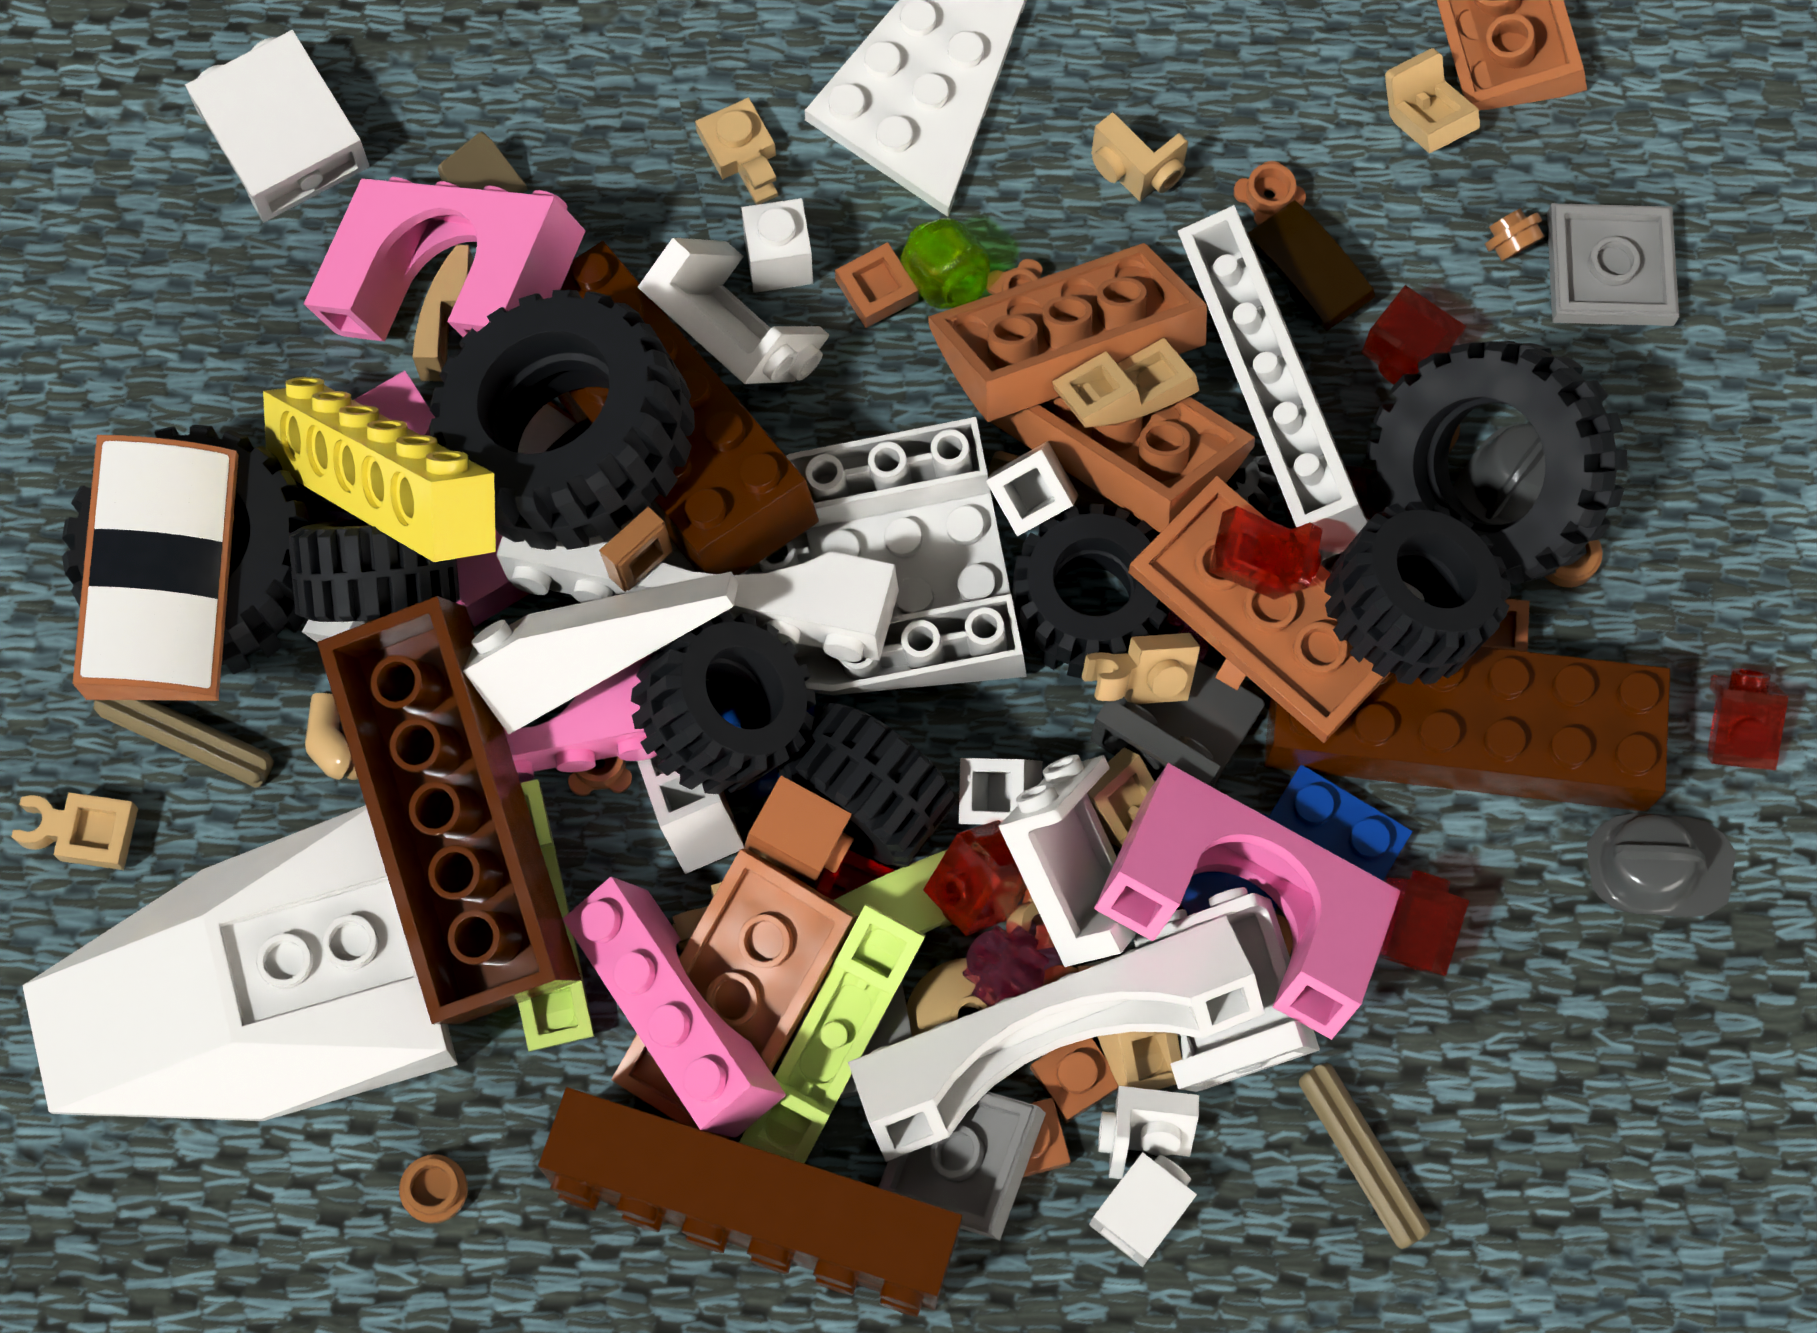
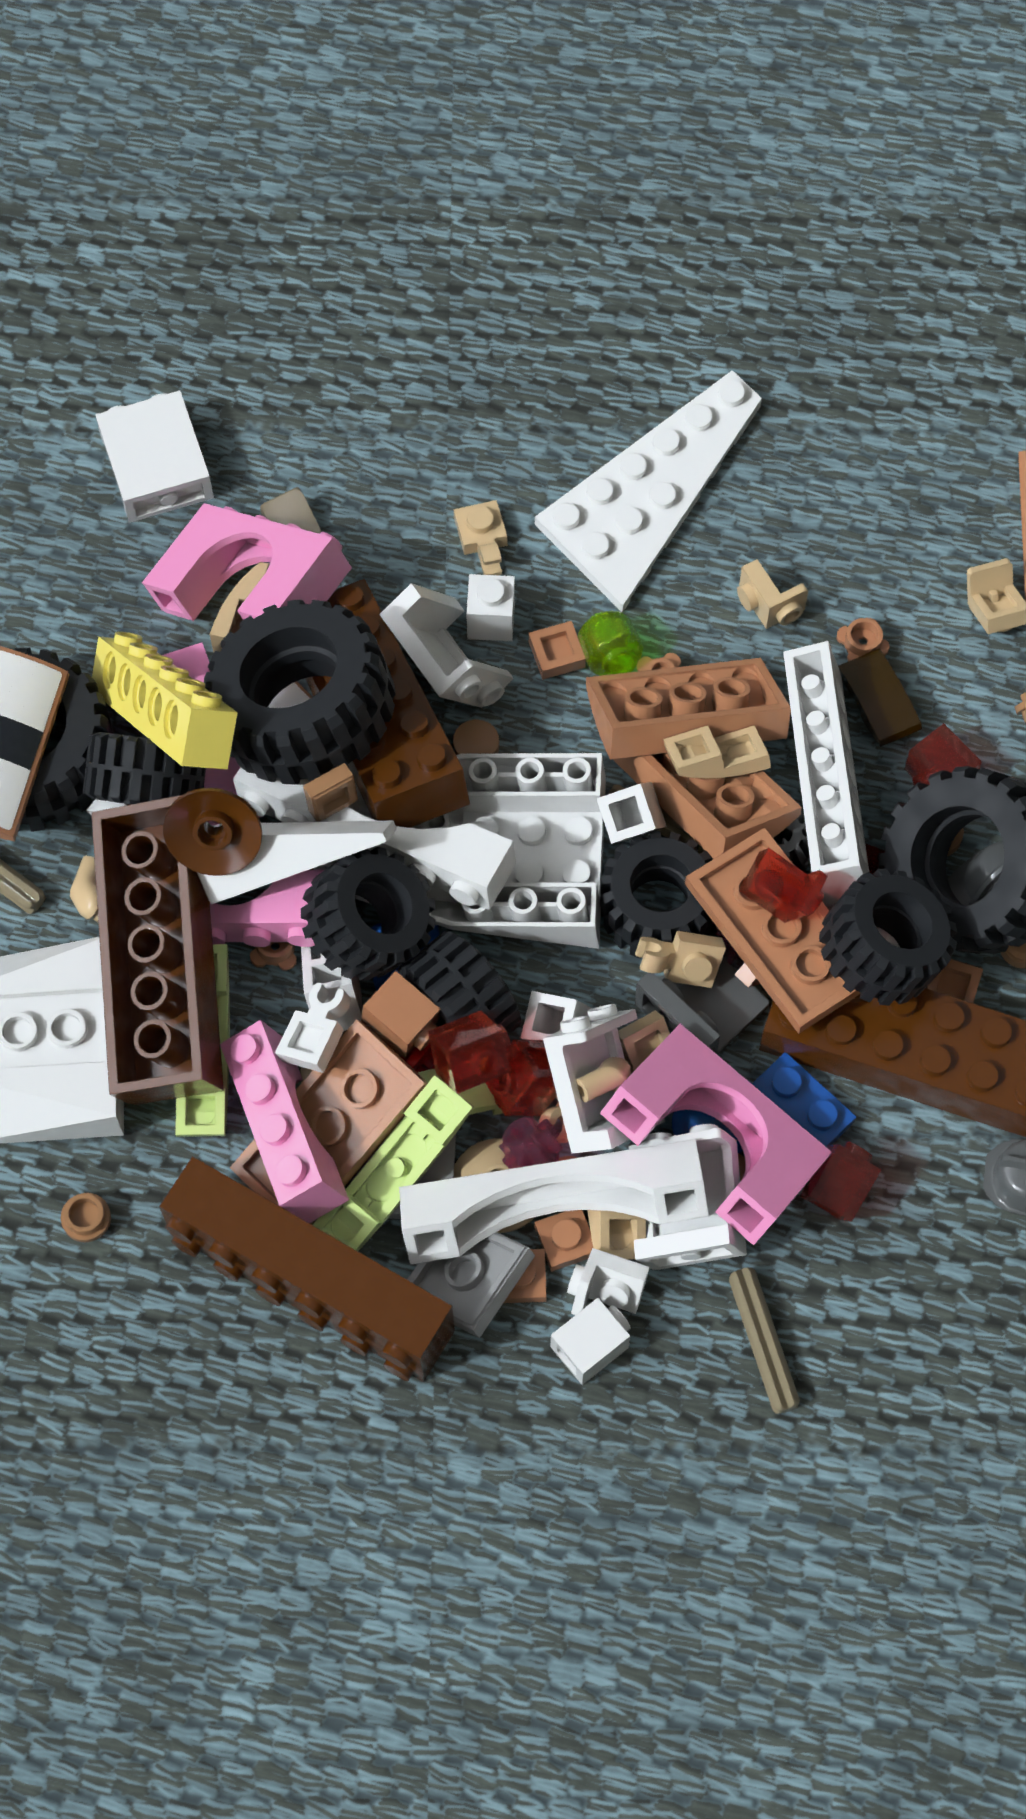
camera: 15 degrees right, 5 degrees down
(494, 661) = (211, 848): none -> reddish brown dish
(690, 884) = (315, 1034): none -> white plate
(799, 427) = (476, 738): none -> medium nougat tile
(905, 864) = (470, 1051): none -> clear red brick
(1093, 852) = (605, 1078): none -> tan arm

